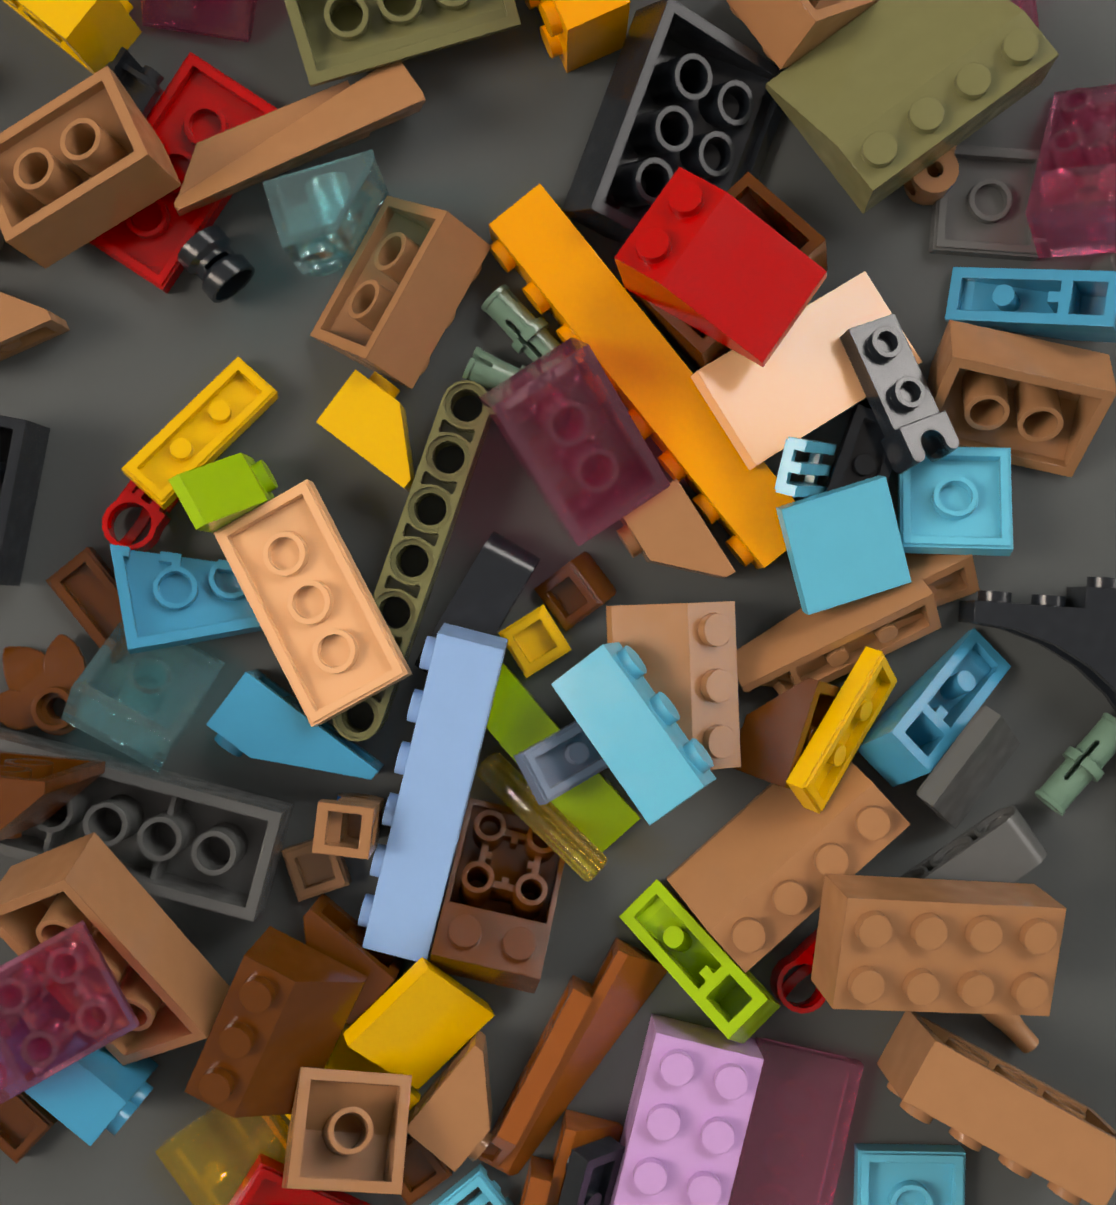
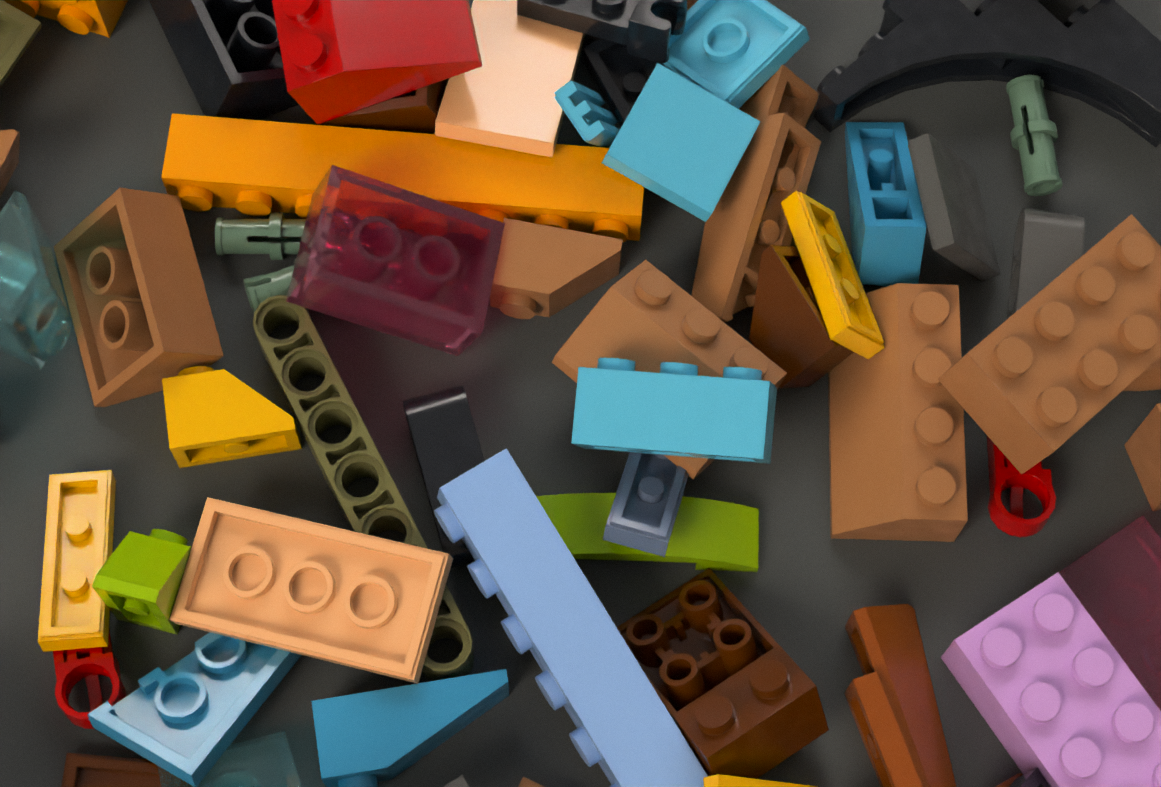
camera: 50 degrees left, 20 degrees down
(348, 825) = (529, 729): medium nougat leg -> none
(535, 641) = (533, 451): yellow tile -> none
(543, 819) = (681, 576): clear yellow axle -> none
(576, 590) = (516, 391): reddish brown slope -> none
(699, 963) = (931, 564): lime slope -> none

